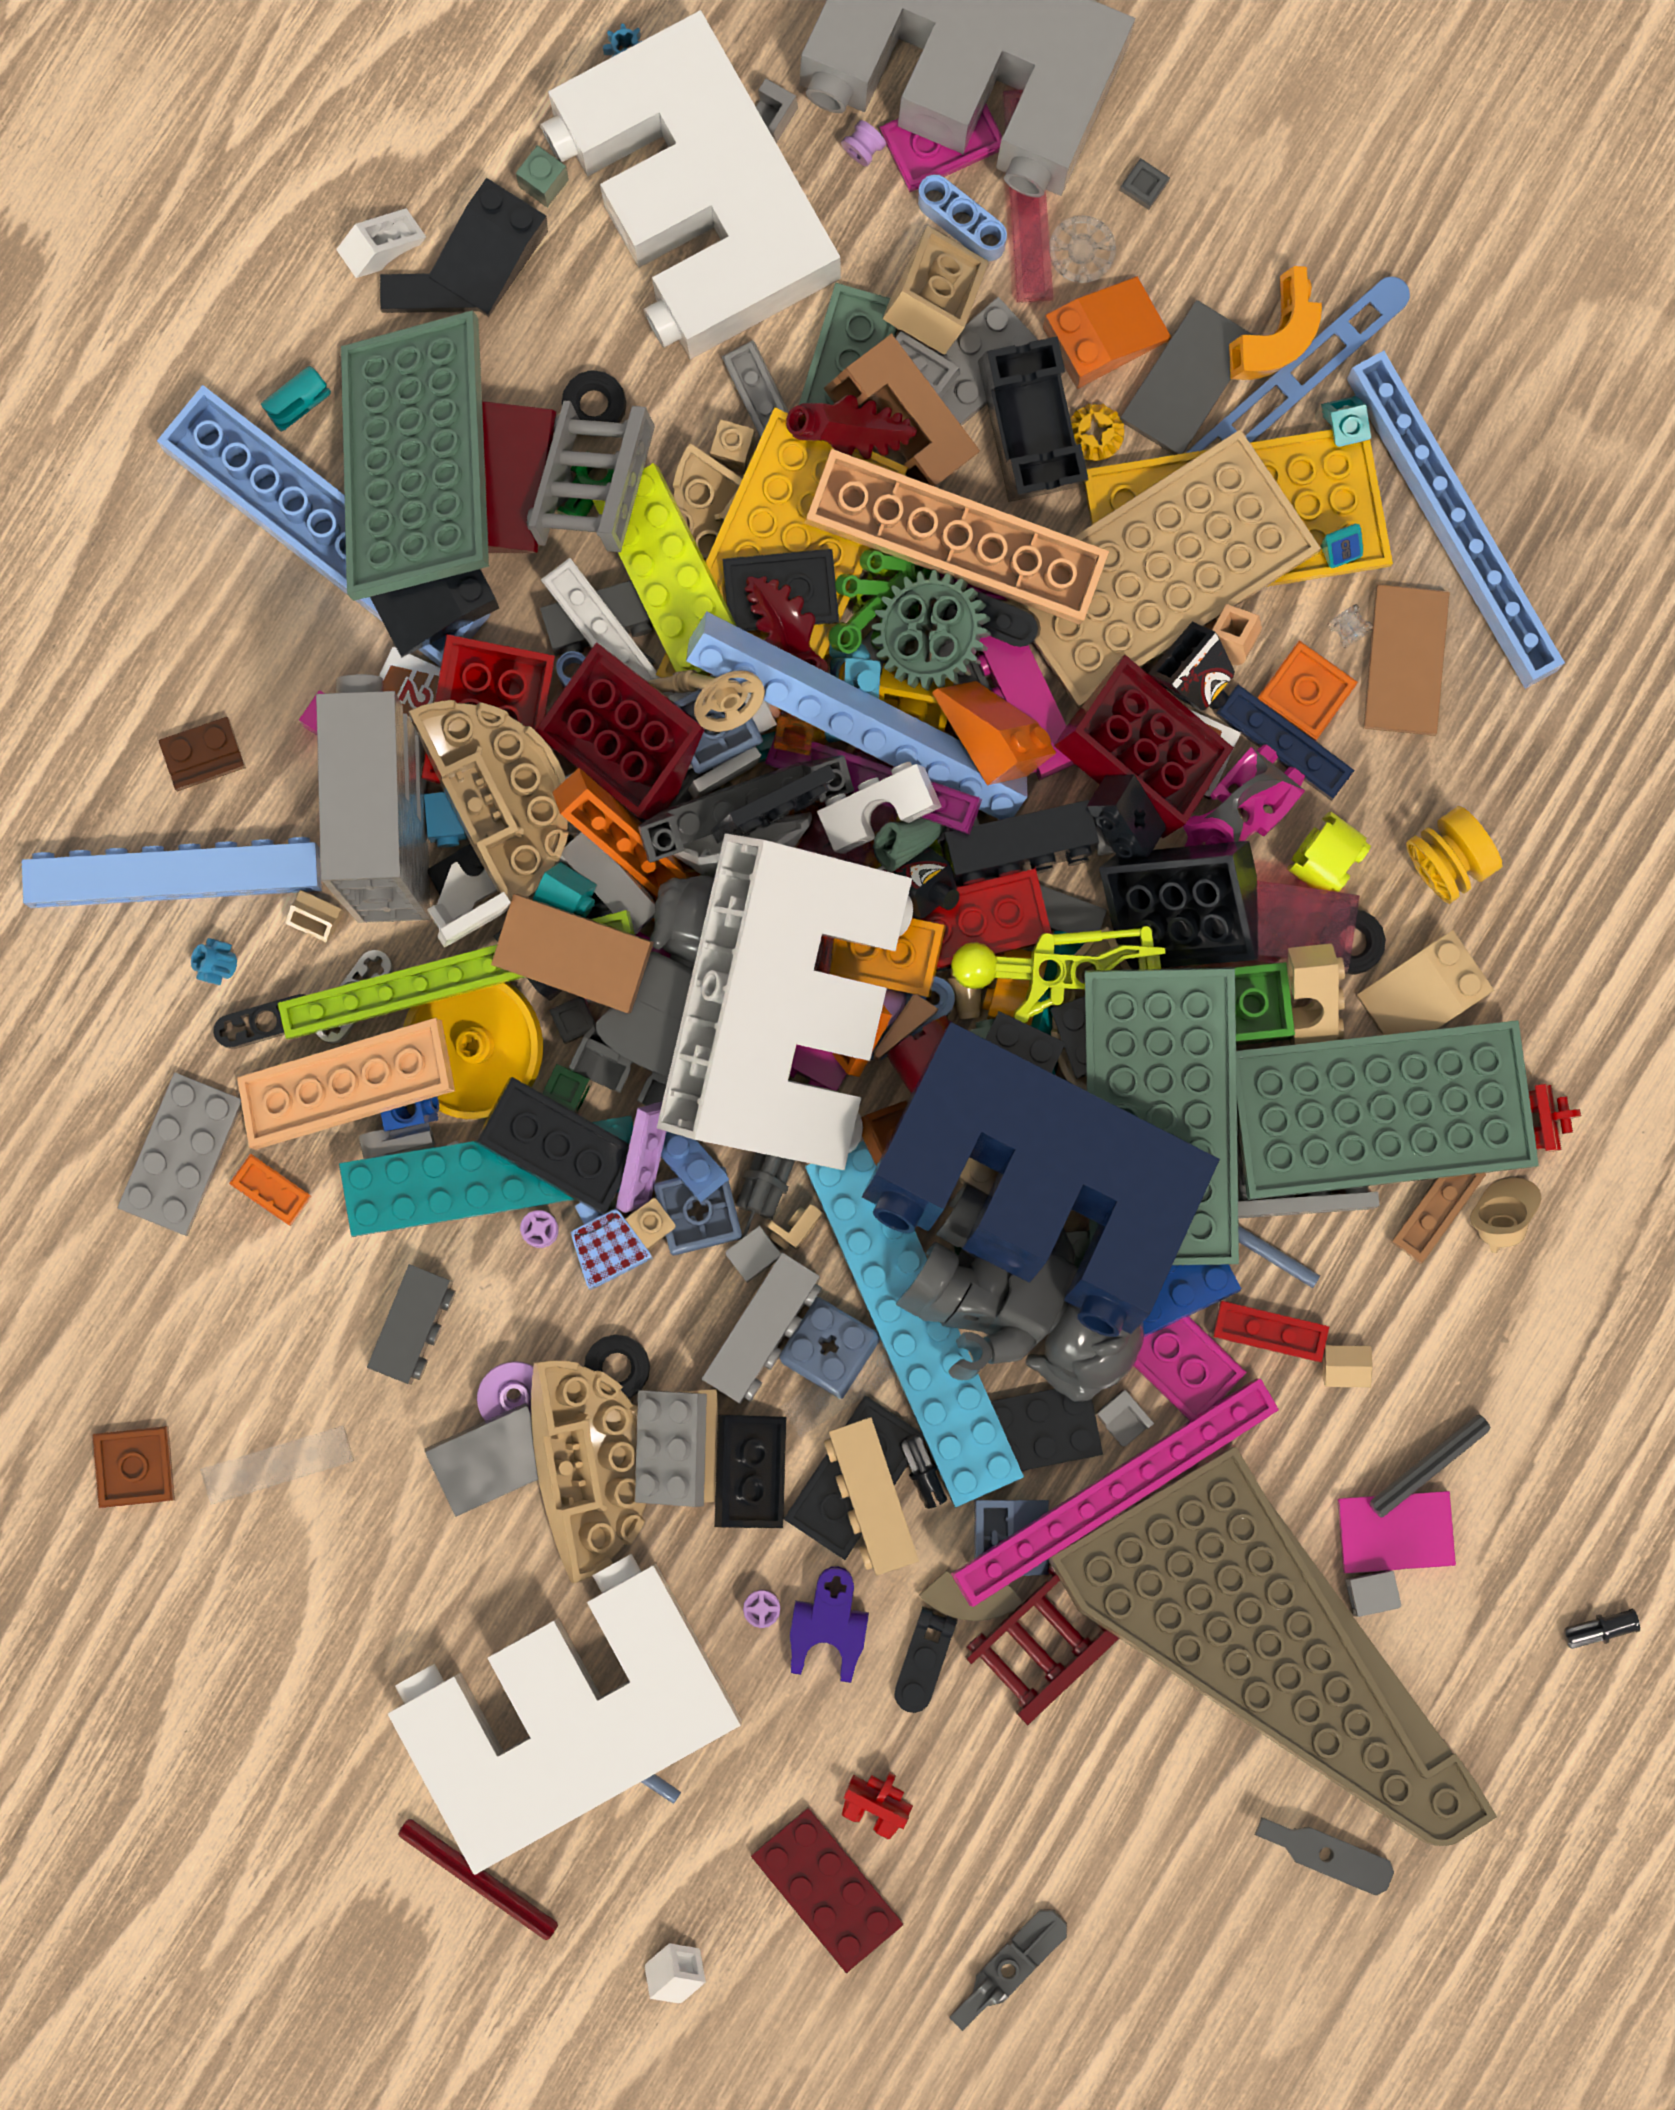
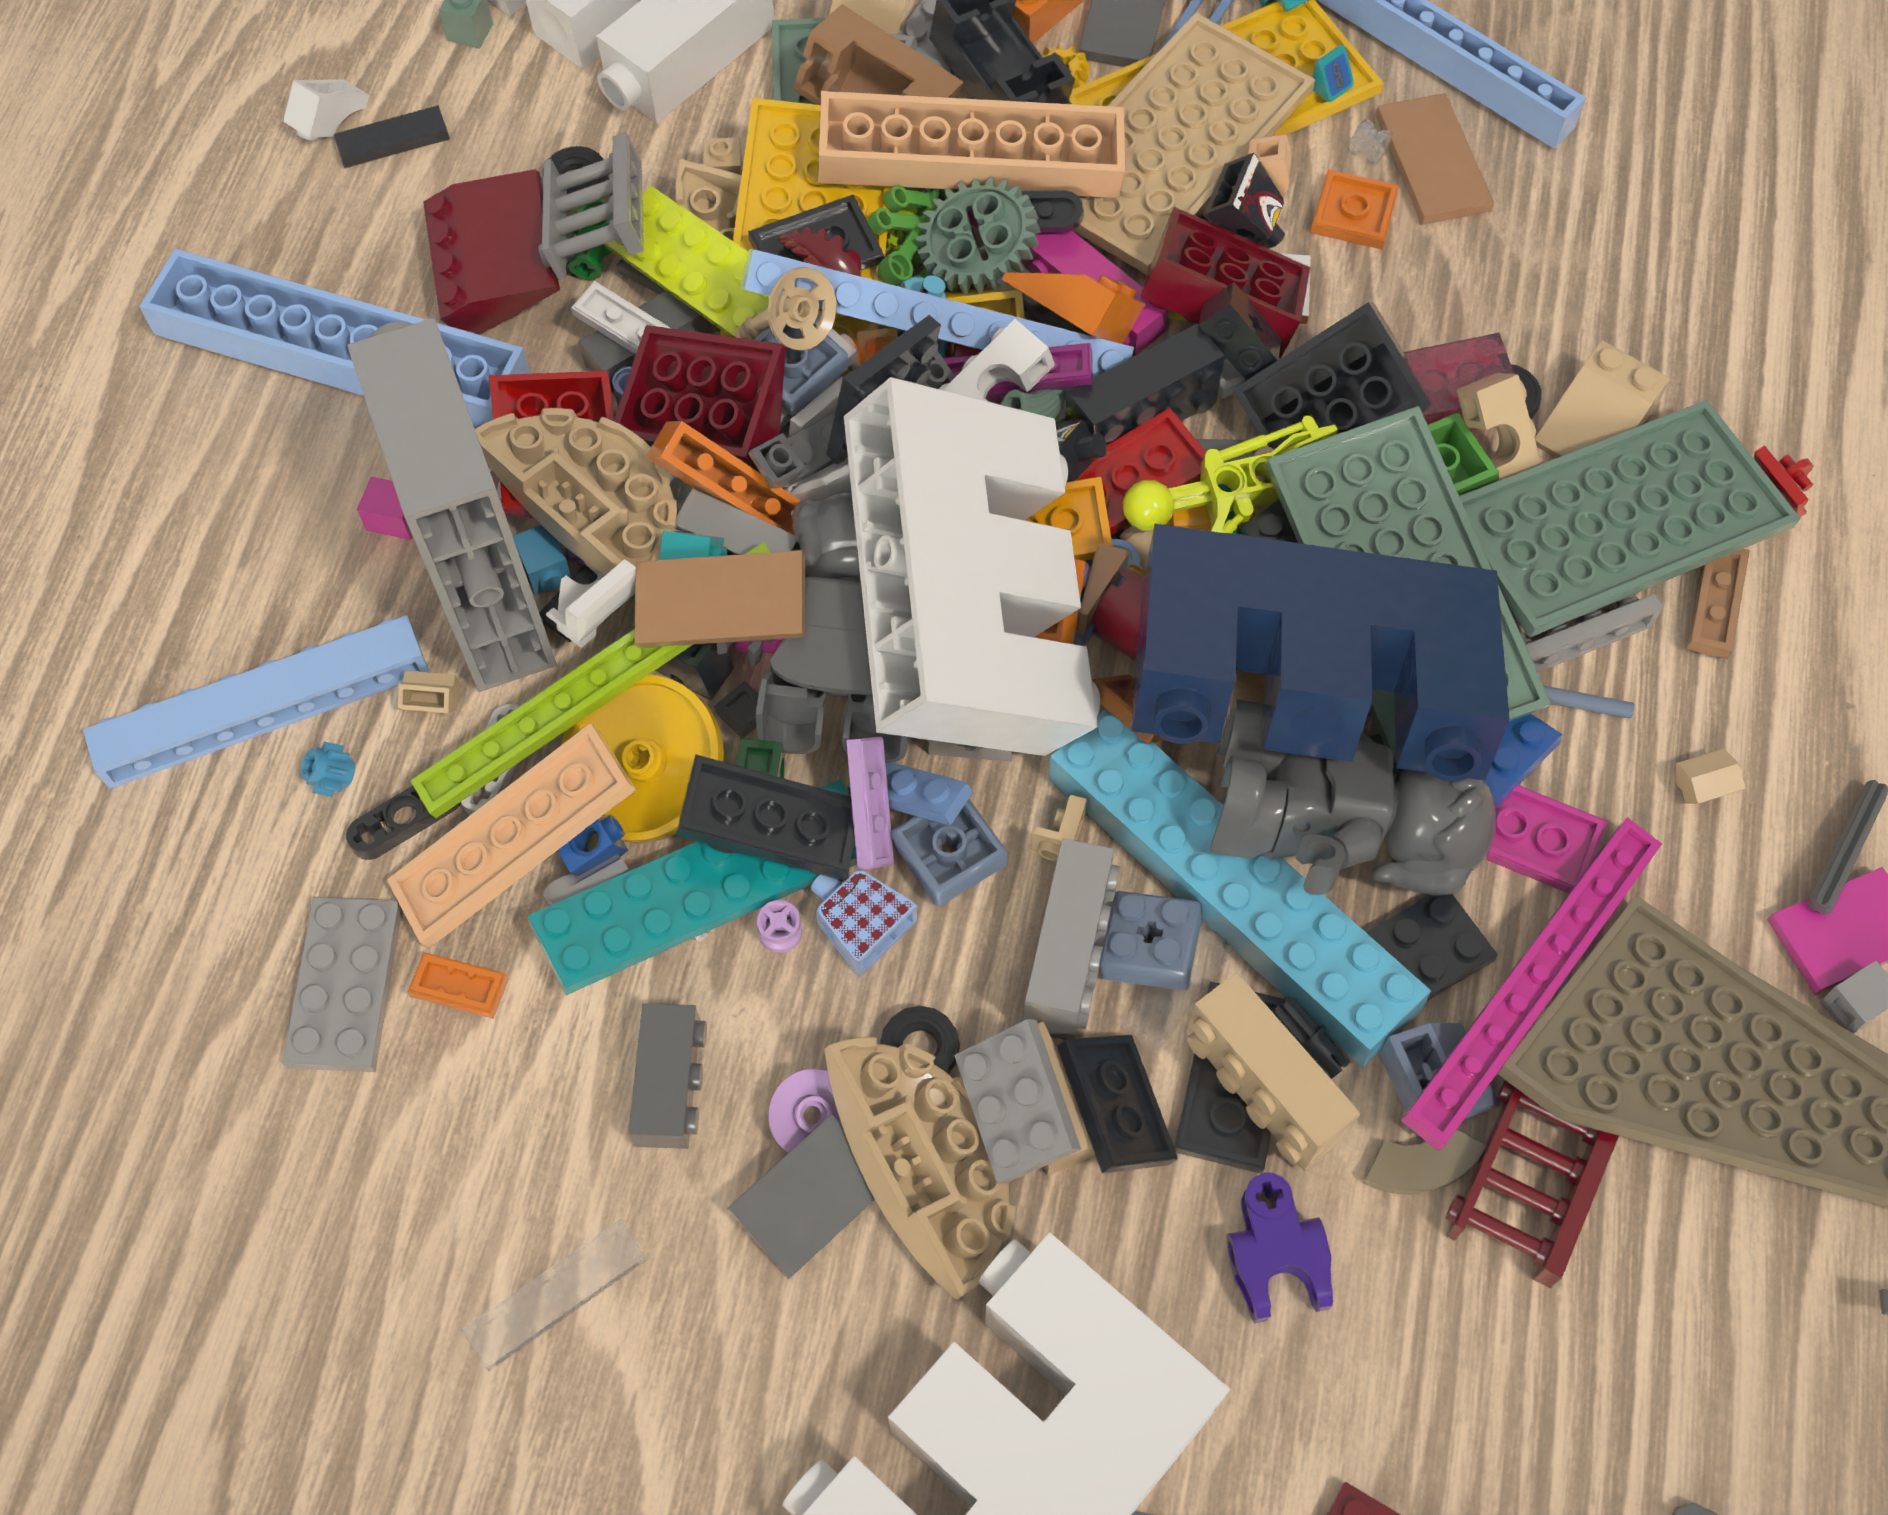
camera: 15 degrees left, 20 degrees down
(133, 1467) = (377, 1358): dark orange tile -> none
(202, 754) = (263, 583): reddish brown plate -> none
(296, 398) = (278, 247): teal arm -> none
(413, 456) = (409, 233): sand green plate -> none
(434, 609) = (482, 334): black slope -> none
(489, 246) = (433, 78): black slope -> none
(651, 1223) = (903, 870): tan bracket -> none
(753, 1254) = (1029, 870): light grey panel -> none
(754, 384) = (721, 114): light grey tile -> none
(761, 1613) = (1195, 1250): lavender wheel -> none
(764, 1186) = (1011, 797): dark grey piece -> none
(850, 427) = (805, 84): dark red plant -> none
(879, 1799) = (1403, 1443): red hips -> none
(923, 1661) = (1403, 1255): black plate -> none
(1124, 1418) = (1503, 907): light grey panel -> none
(1257, 785) = (1343, 289): dark pink hips -> none
(1270, 1331) = (1612, 770): red plate -> none
(1292, 746) = (1357, 254): dark blue tile -> none
(1328, 854) = (1448, 313): neon yellow brick -> none
(1458, 851) = (1568, 281): yellow wheel -> none
(1505, 1212) = (1790, 579): tan piece -> none

